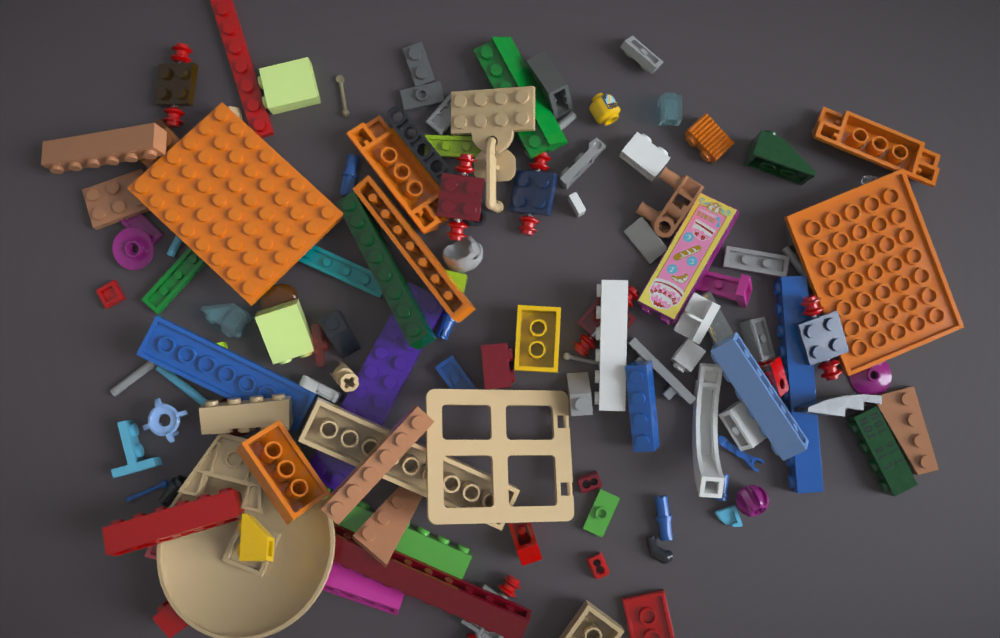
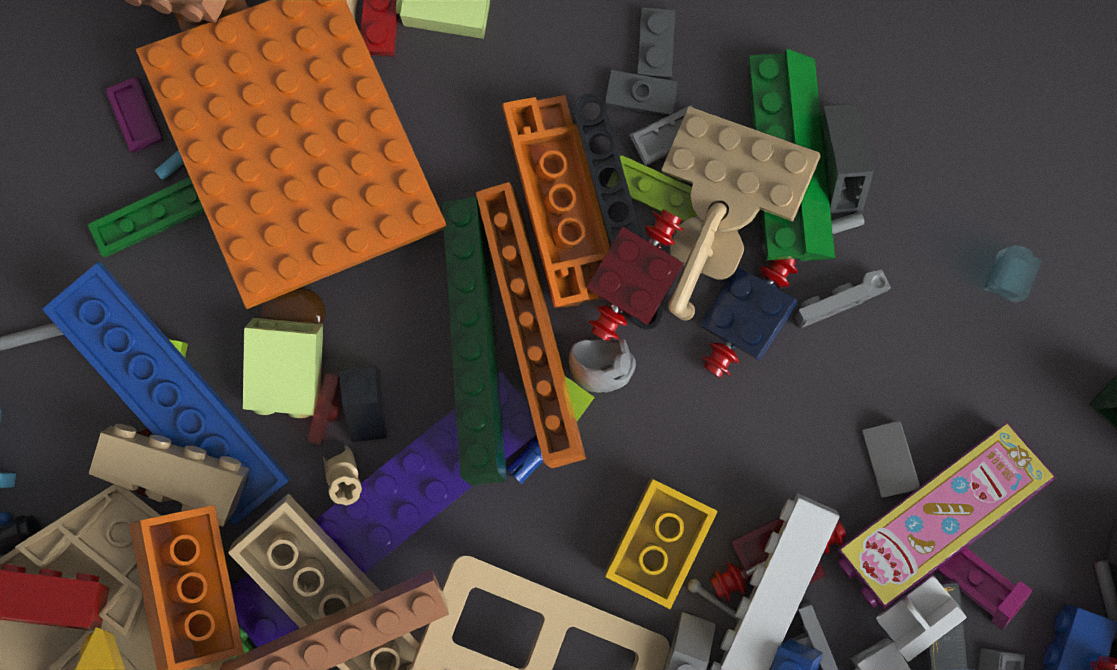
camera: 20 degrees right, 0 degrees up
(110, 294) = (45, 196): red tile -> none
(112, 201) = (105, 56): nougat plate -> none
(124, 250) = (94, 141): magenta dish -> none
(157, 428) = (26, 425): light blue piece -> none
(182, 385) = (97, 386): medium azure bar -> none
(230, 317) = (210, 309): clear light blue slope -> none
(320, 389) = (298, 475): white piece -> none
(340, 80) = (527, 16): dark tan hinge -> none
(342, 270) = (408, 308): teal plate -> none
(349, 174) = (480, 167): blue axle -> none
(454, 374) = (510, 544): blue plate -> none
(496, 366) = (580, 560): dark red brick -> none
(576, 204) = (807, 359): white tile -> none
(604, 109) = (912, 230): yellow head -> none
(636, 50) = (1009, 179): light grey plate -> none
(644, 156) = (944, 329): white brick -> none
(684, 195) = (964, 429): nougat piece -> none
(708, 138) = (1054, 344): orange brick -> none
(755, 261) = (1046, 565): light grey plate -> none

